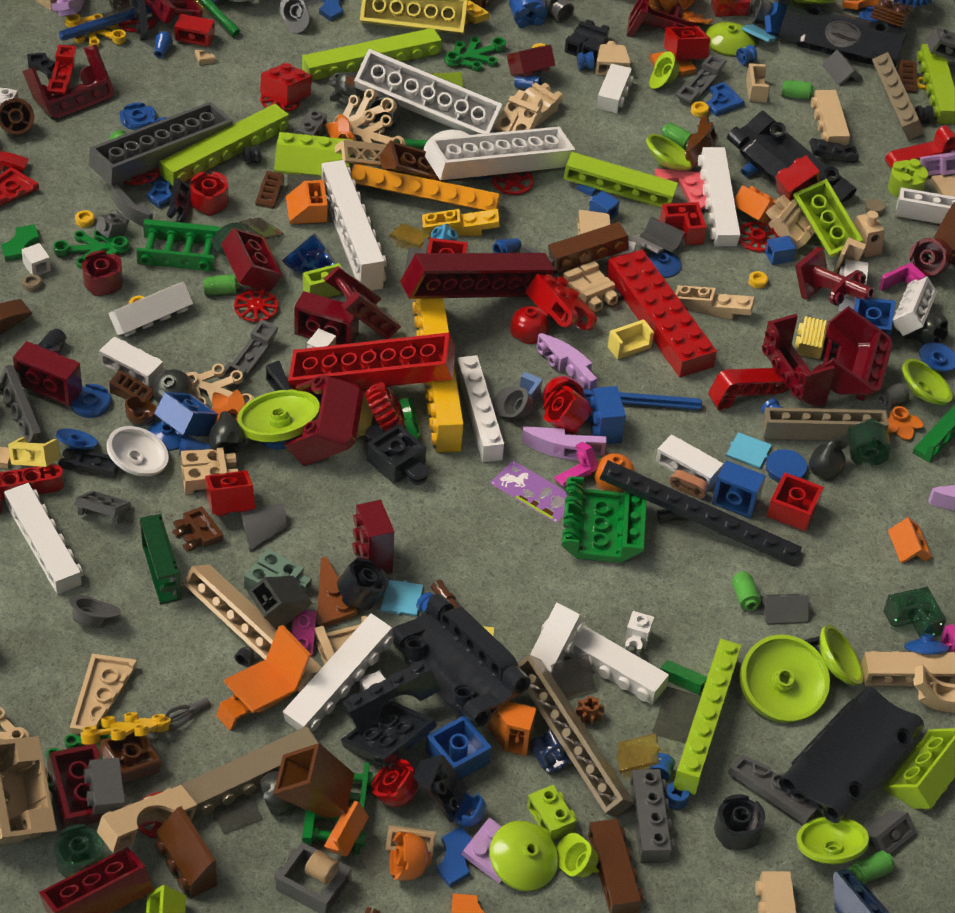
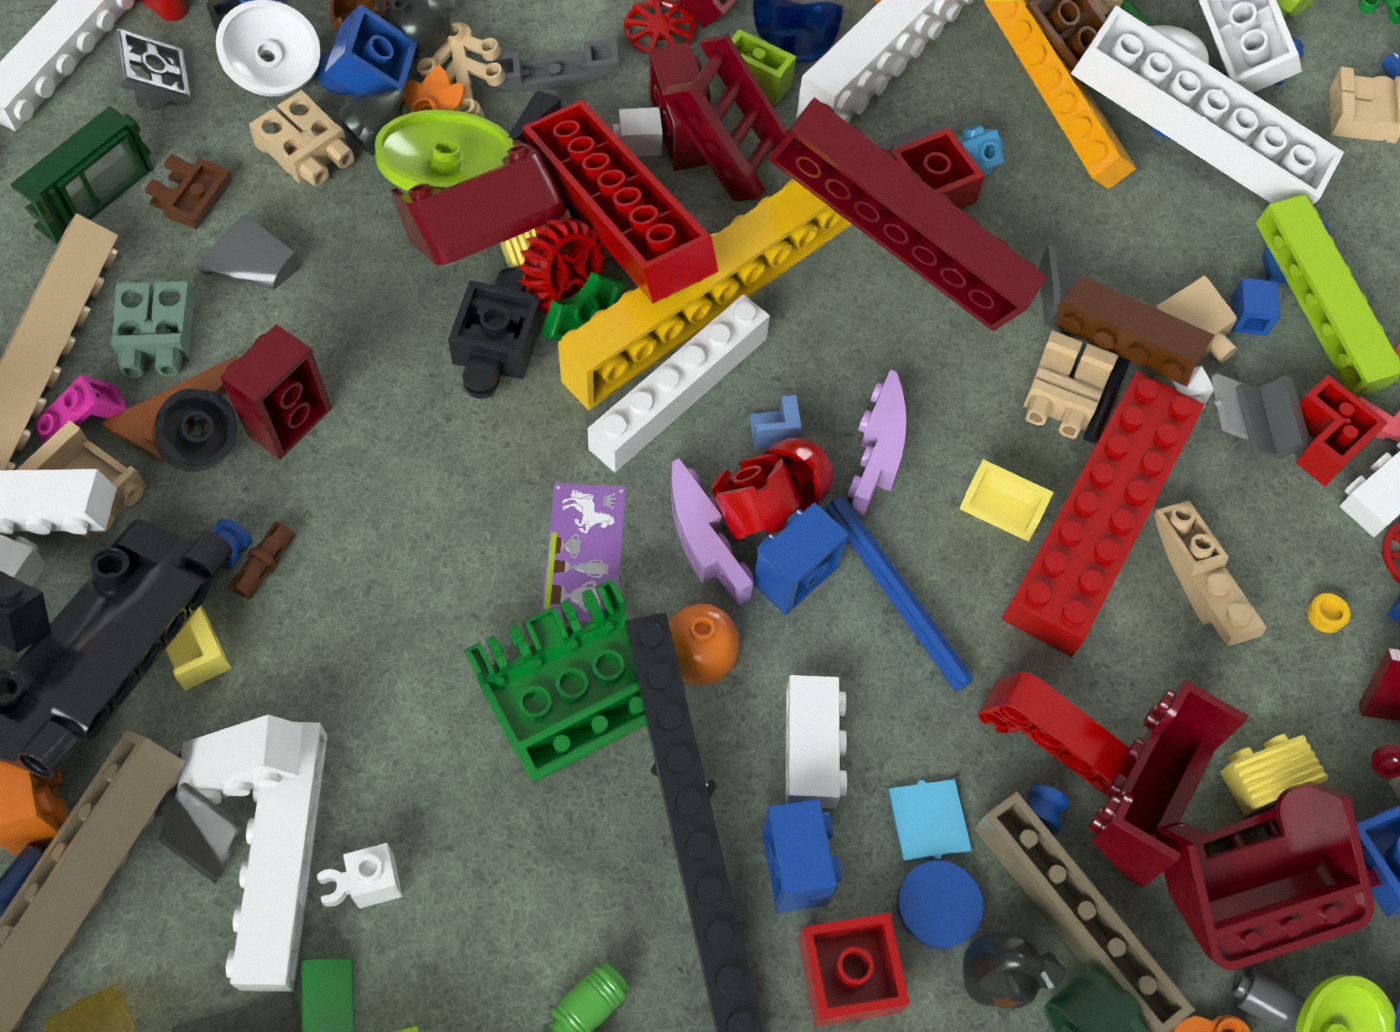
camera: 55 degrees right, 15 degrees up
(192, 444) = (331, 98): blue cone -> none
(230, 492) = (261, 181): red brick -> none
(279, 599) = (69, 343): pearl dark grey slope -> none
(401, 598) = (235, 496): medium azure piece -> none
(410, 235) = (953, 108): clear yellow piece -> none
(464, 224) = (1031, 154): yellow slope -> none
(506, 245) = (1042, 231): blue cone -> none
(513, 180) = (1192, 169): red wheel -> none
(513, 403) = (727, 422): dark grey piece -> none
(519, 113) = (1315, 94): tan hips -> none
(528, 323) = (915, 350): red cylinder -> none
(560, 301) = (983, 360): red brick -> none
(587, 465) = (670, 590): dark pink bracket -> none
(590, 710) = (137, 903): dark orange gear -> none
(666, 263) = (1217, 464): blue dish -> none
(689, 484) = (765, 769): nougat beam -> none

